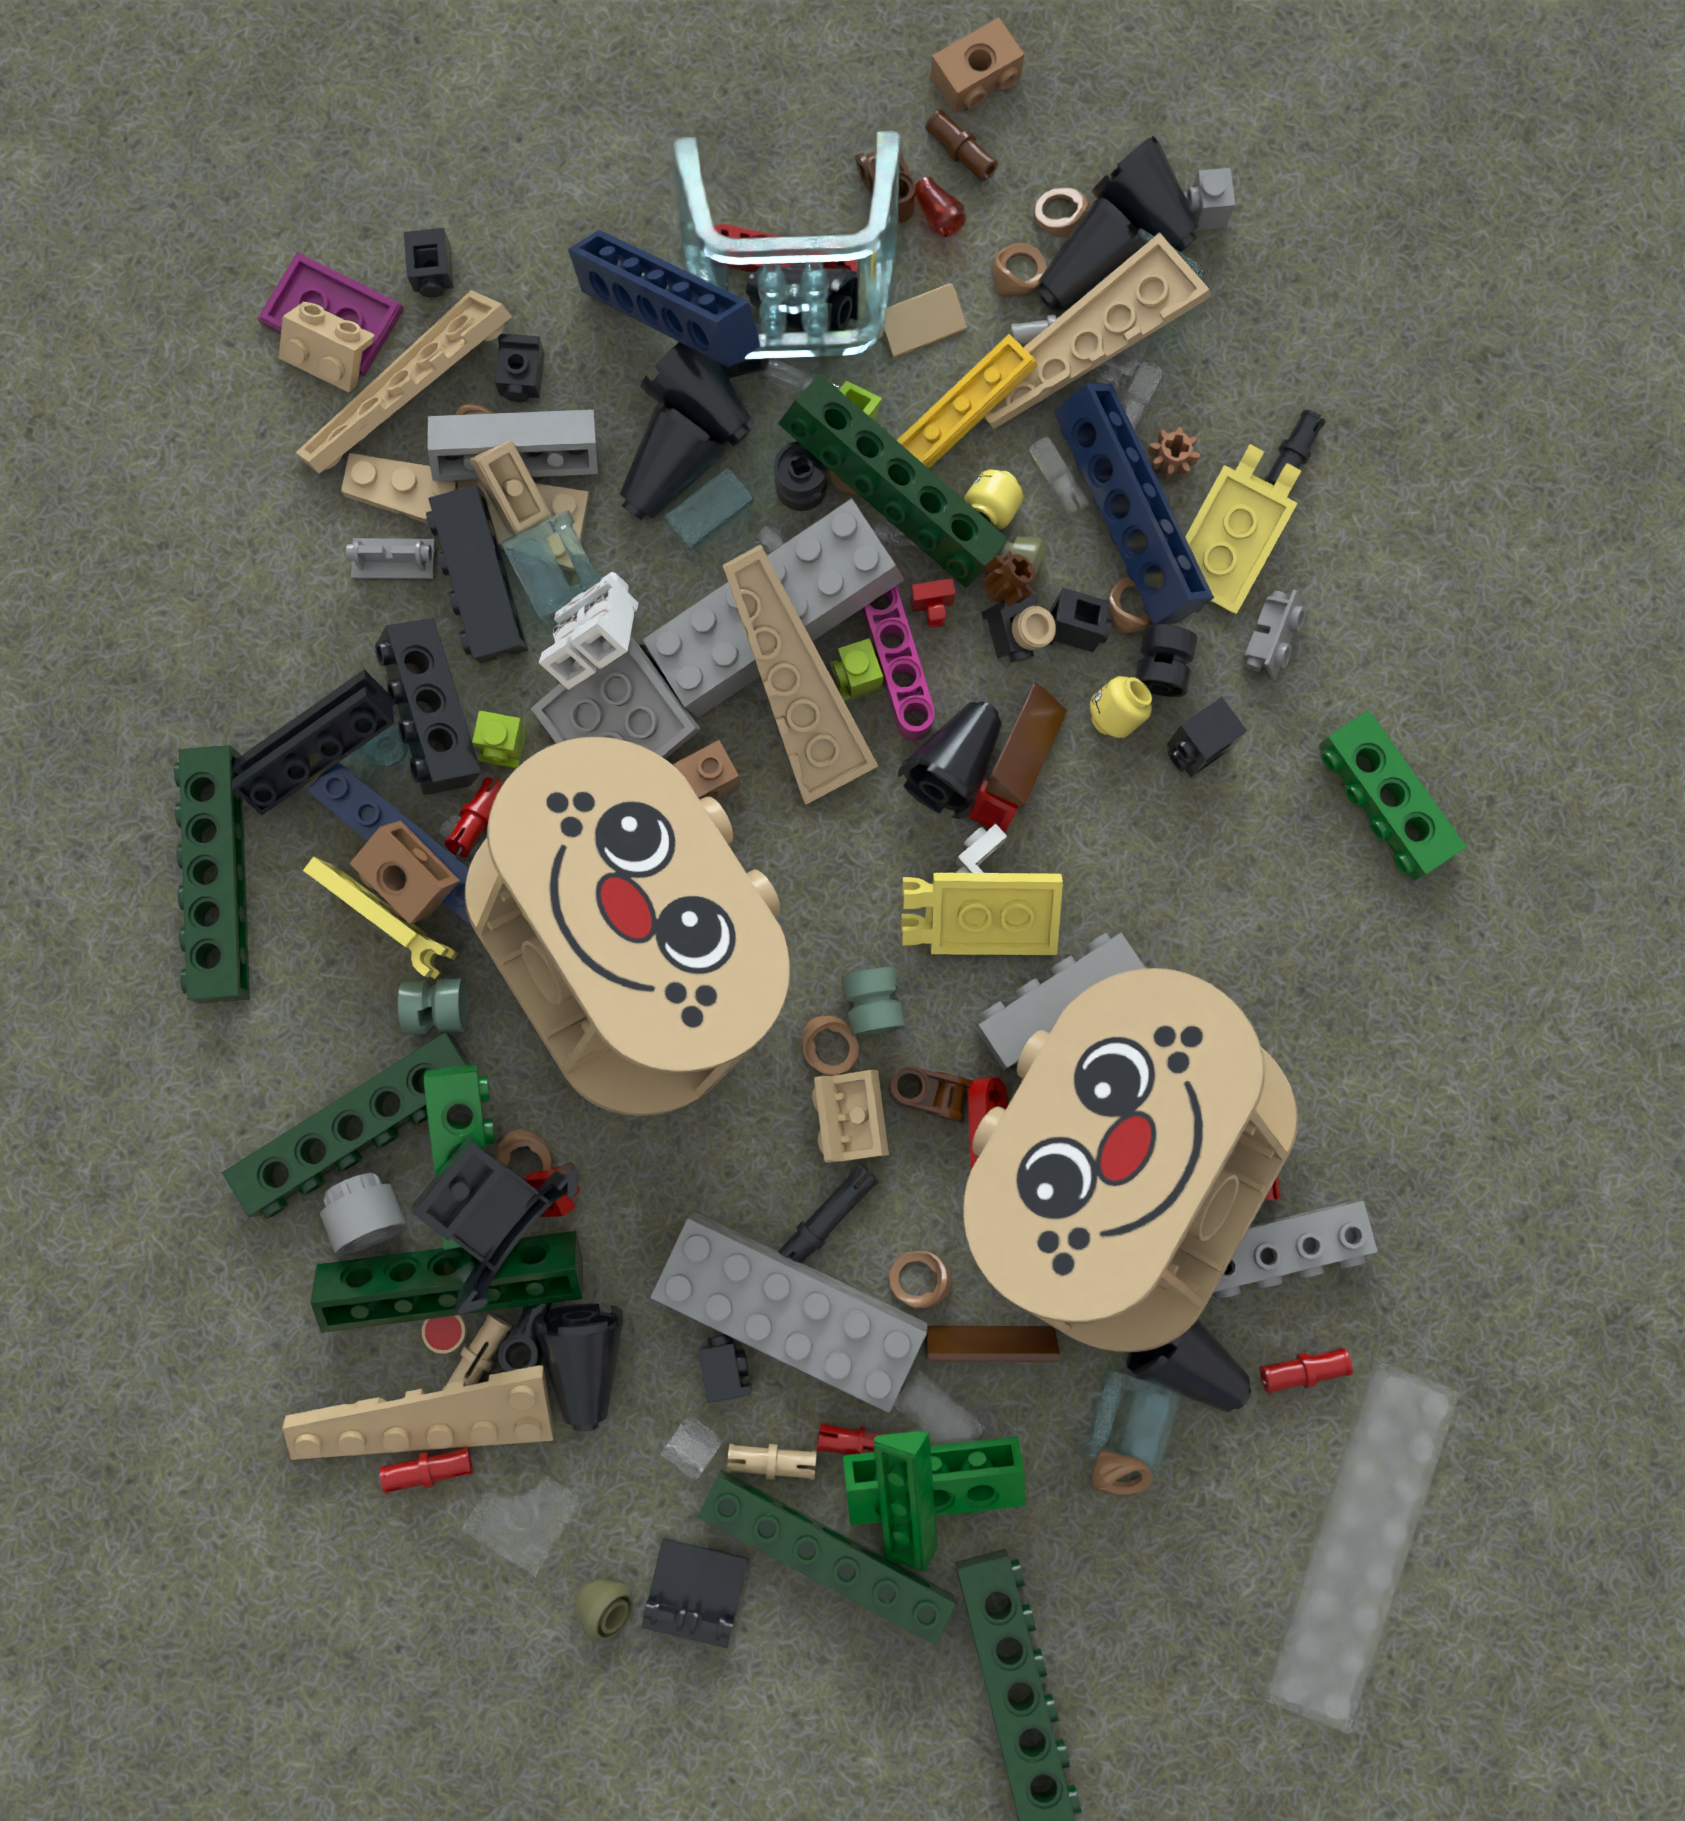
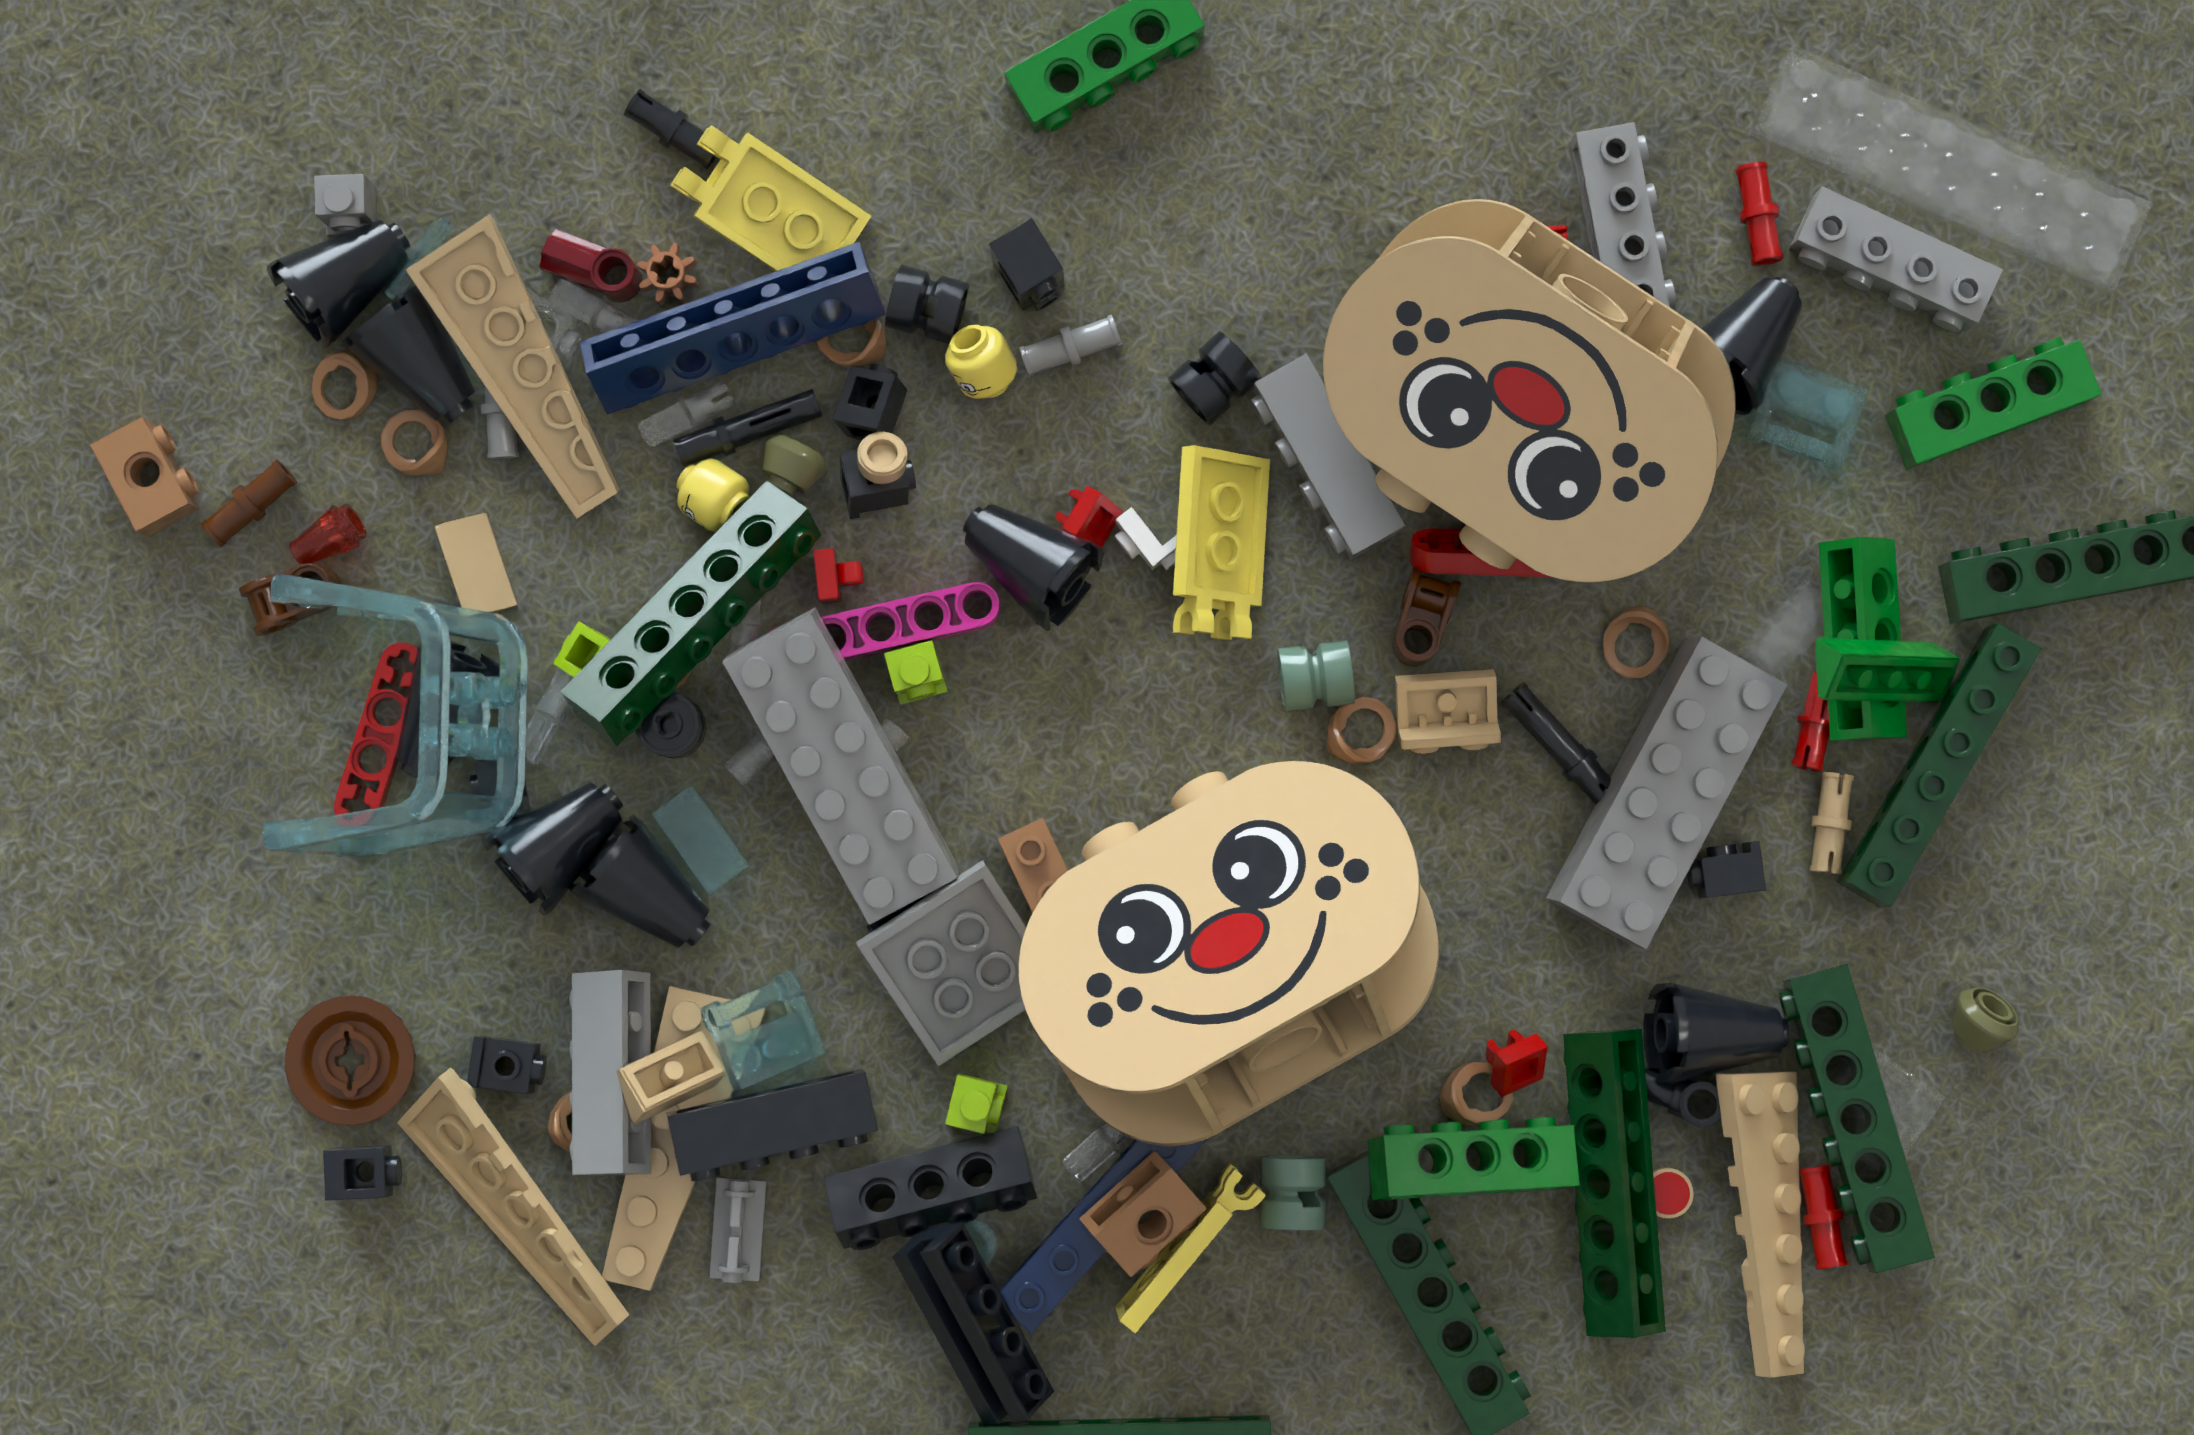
camera: 80 degrees left, 5 degrees up
(323, 345) = (460, 1305): tan bracket -> none
(337, 294) = (415, 1299): magenta tile -> none
(361, 1214) = (1531, 1282): light grey piece -> none
(403, 1543) = (1907, 1238): none -> dark green brick
(473, 819) = (1070, 1134): red pin -> none
(486, 1211) = (1541, 1131): black piece -> none
(493, 1332) = (1697, 1152): tan pin -> none
(497, 238) = (324, 1035): none -> reddish brown gear
(589, 629) = (855, 987): white hips -> none
(666, 298) = (451, 875): dark blue brick -> none
(692, 1446) = (1811, 910): clear brick -> none
(694, 1593) = (1971, 917): black hinge -> none
(806, 704) = (960, 733): tan wing -> none
(968, 401) = (591, 520): yellow tile -> none
(992, 1344) = (1714, 568): reddish brown slope -> none
(1009, 578) = (823, 482): reddish brown gear -> none
(1027, 747) = (1023, 476): reddish brown slope -> none
(1044, 511) = (745, 428): none -> black pin
(1112, 1466) = (1857, 440): medium nougat piece -> none
(1122, 901) = (1214, 378): none -> black wheel
(1140, 782) = (1070, 345): none -> light grey pin
(1175, 391) = (588, 265): none -> dark red piece
(1176, 1661) = (2068, 384): none -> green brick
(1275, 1496) = (1895, 260): none -> light grey brick
(1282, 619) = (916, 175): light grey hinge -> none

